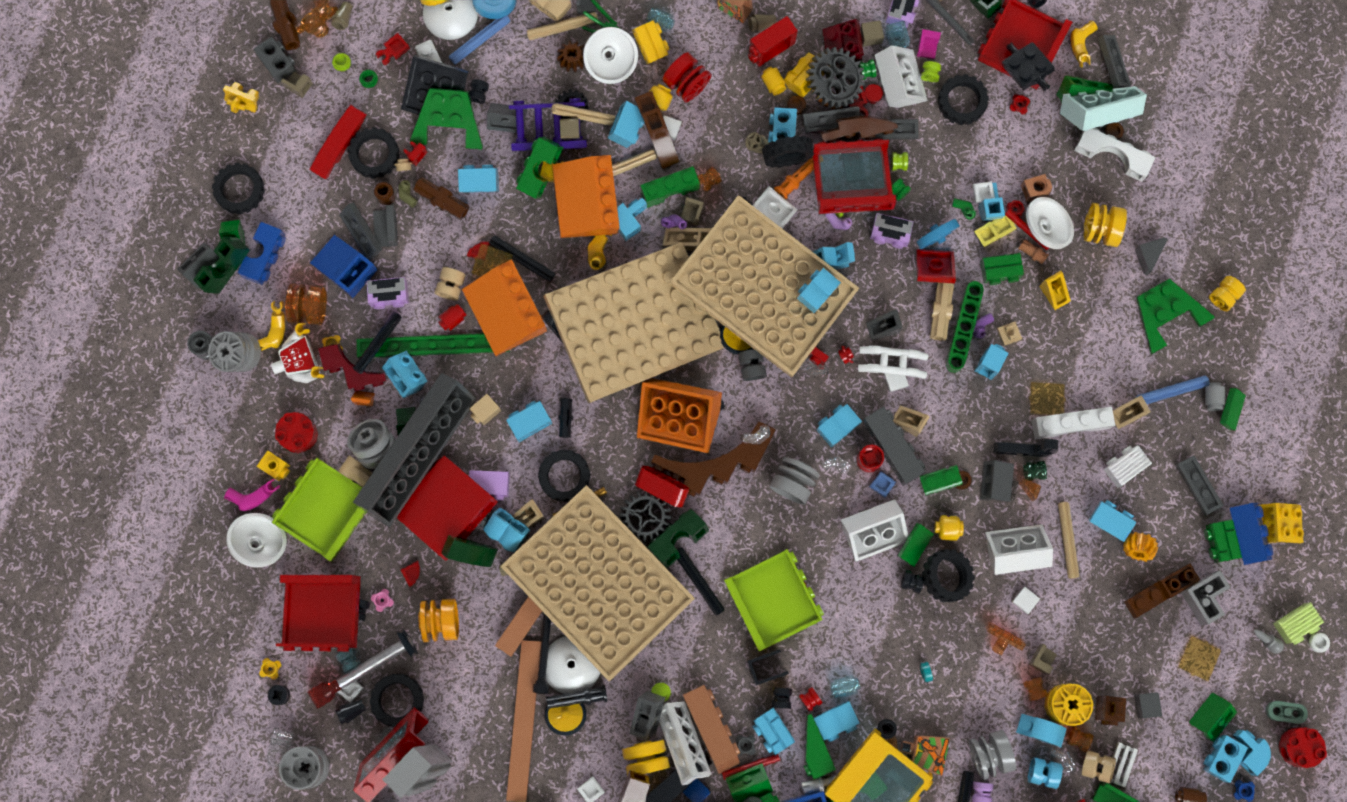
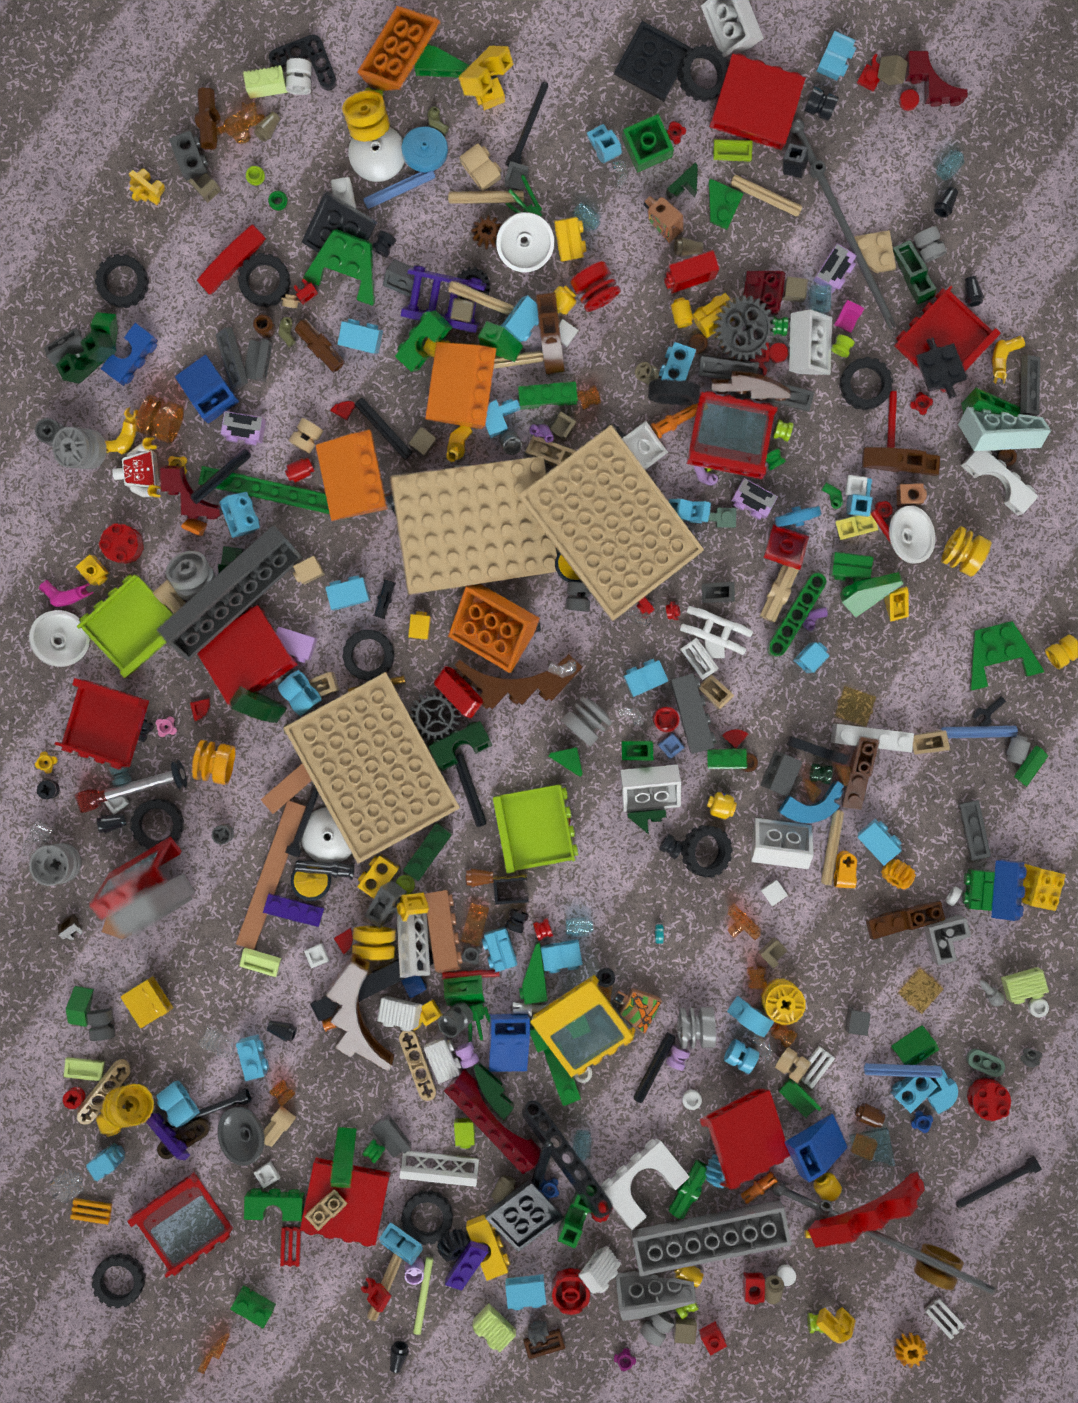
camera: 15 degrees right, 10 degrees up
(394, 47) = (312, 174): red plate -> none
(462, 691) = (219, 835): none -> dark grey wheel
(488, 259) = (351, 421): clear yellow piece -> none
(555, 749) = (293, 910): none -> dark purple plate
(563, 260) = (423, 442): none -> dark tan piece
(607, 433) = (419, 626): none -> yellow brick
(610, 145) = (498, 337): none -> green slope
(615, 766) = (344, 940): none -> red tile
(627, 690) = (379, 877): none -> yellow brick
(650, 241) = (512, 446): none -> dark grey wheel
(673, 708) = (412, 904): none -> yellow bracket
(674, 652) = (428, 851): none -> dark green arch
(731, 665) = (478, 877): none -> dark orange cone
(741, 714) = (474, 924): none -> clear orange slope
(787, 523) = (569, 759): none -> green slope
(818, 290) = (661, 543): medium azure brick -> none
(852, 496) = (637, 750): none -> green slope
(868, 255) = (724, 517): none -> sand green plate
(875, 563) = (641, 817): none -> dark green slope
(887, 386) = (701, 656): none -> white tile
(915, 544) = (685, 812): green tile -> none
(941, 458) = (734, 736): none -> red tile
(997, 126) = (892, 419): none -> red bar
(1009, 333) = (838, 633): tan tile -> none
(1017, 158) = (901, 460): none -> reddish brown slope
(1025, 287) = (868, 592): none -> slope
(1030, 513) = (815, 812): none -> dark azure arch
(1036, 253) = (889, 560): nougat pin -> none
(1055, 463) = (843, 773): none -> clear orange slope
(1071, 458) = (861, 769): none -> reddish brown slope
(1088, 561) = (844, 873): none -> light orange piece
(1110, 710) = (820, 1017): reddish brown brick -> none
(1127, 466) = (911, 793): white brick -> none
(1149, 253) = (1001, 591): dark grey slope -> none
(1175, 369) = (988, 711): none -> black bar
(1200, 555) = (953, 896): none -> white tile
(1208, 741) = (903, 1070): none -> medium blue axle
(1329, 694) = (1031, 1057): none -> dark grey plate

